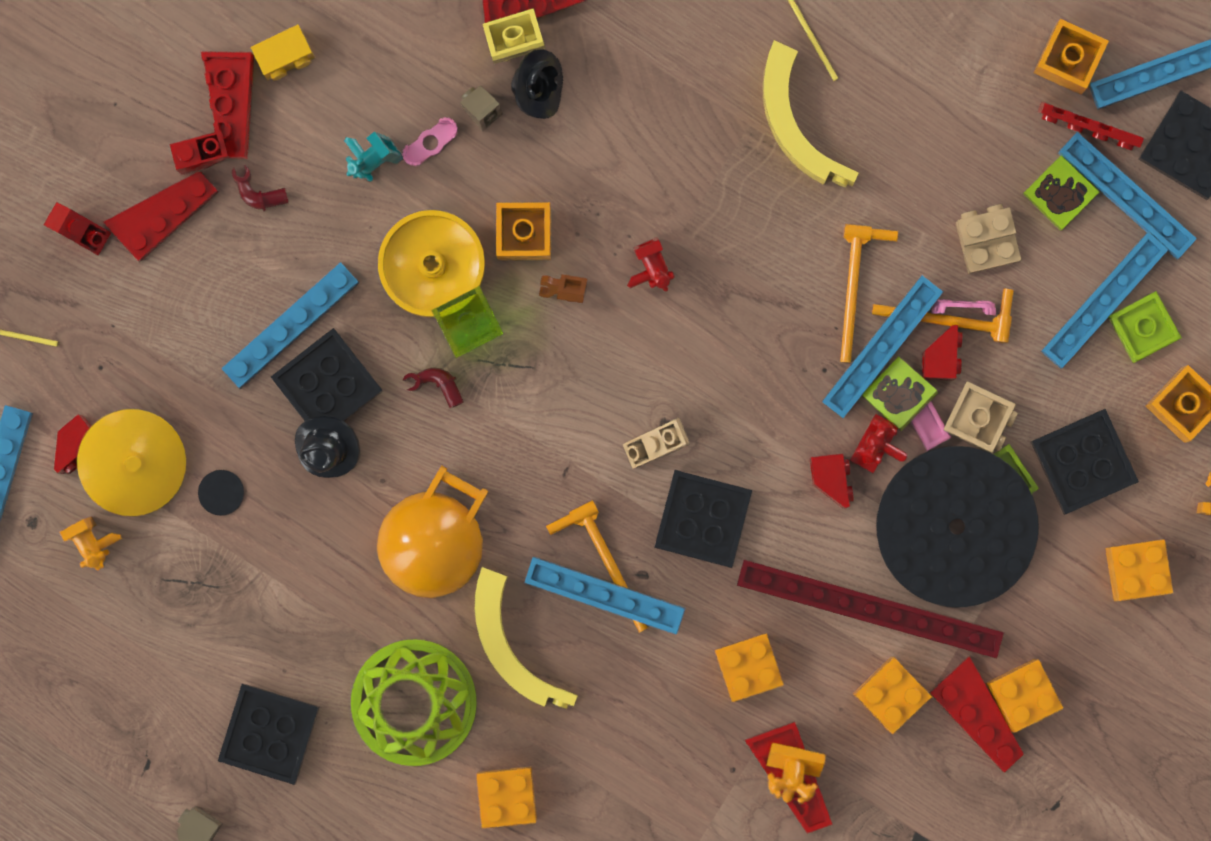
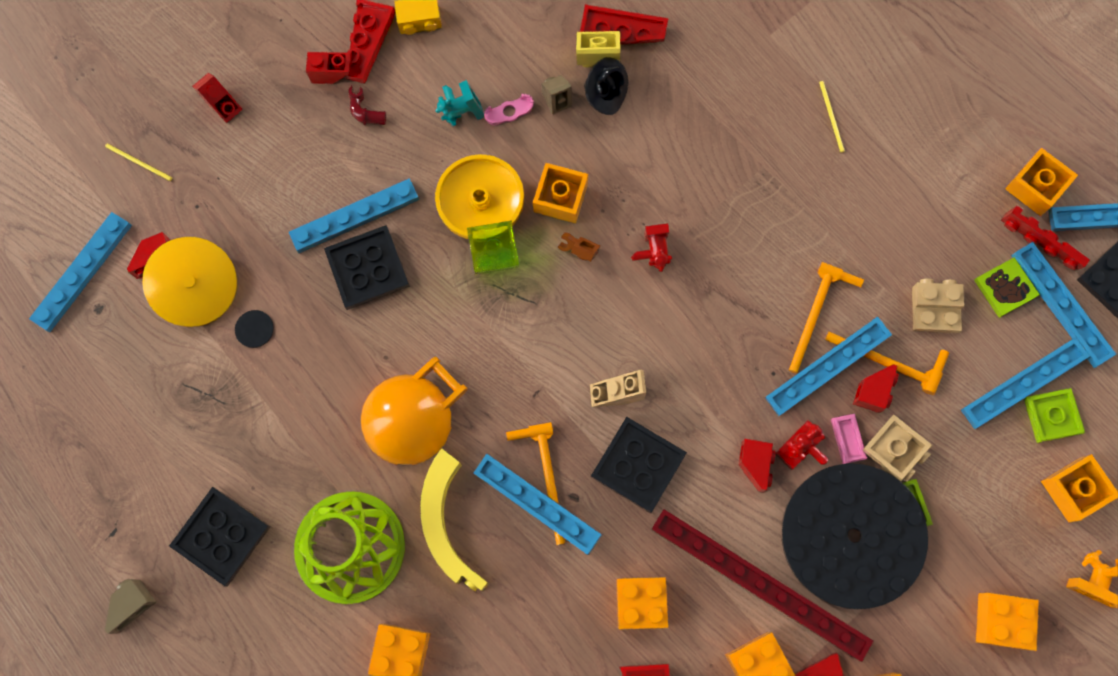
camera: 10 degrees right, 10 degrees down
(86, 543) = (129, 325): light orange piece -> none
(157, 217) = (282, 107): red wing -> none
(327, 446) = (349, 315): black hat -> none
(443, 380) = (459, 290): dark red piece -> none
(784, 126) = (793, 176): light yellow arch -> none
(899, 393) = (833, 409): tile -> none
(988, 307) = (924, 360): bright pink piece -> none
(1084, 461) = (978, 512): black plate -> none

